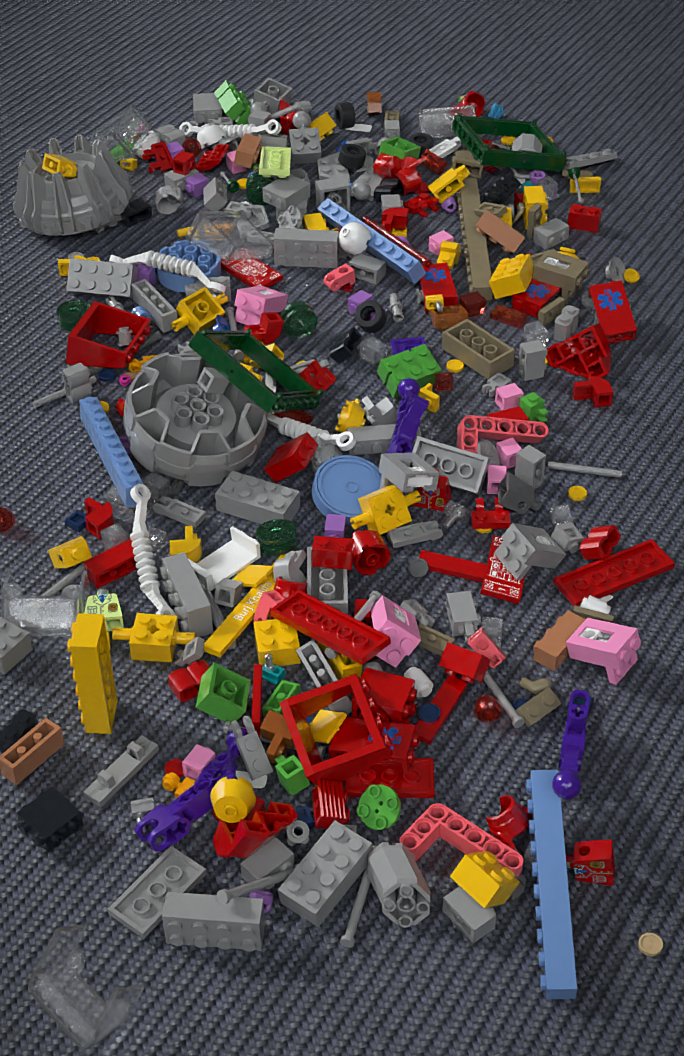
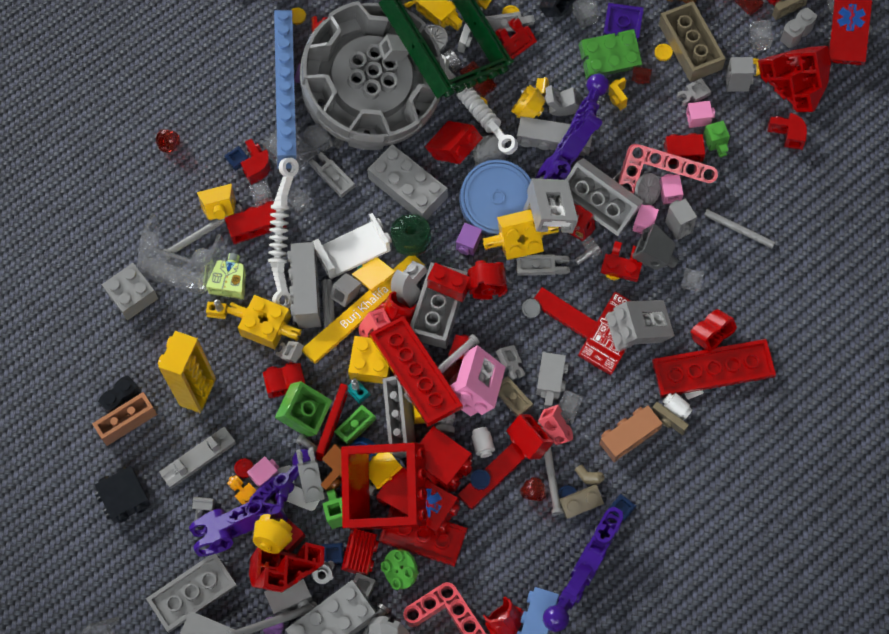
camera: 20 degrees right, 25 degrees up
(191, 545) = (323, 227): yellow brick -> none
(567, 537) = (689, 310): light grey brick -> none
(577, 493) = (720, 256): yellow piece -> none
(606, 646) = (674, 468): bright pink brick -> none

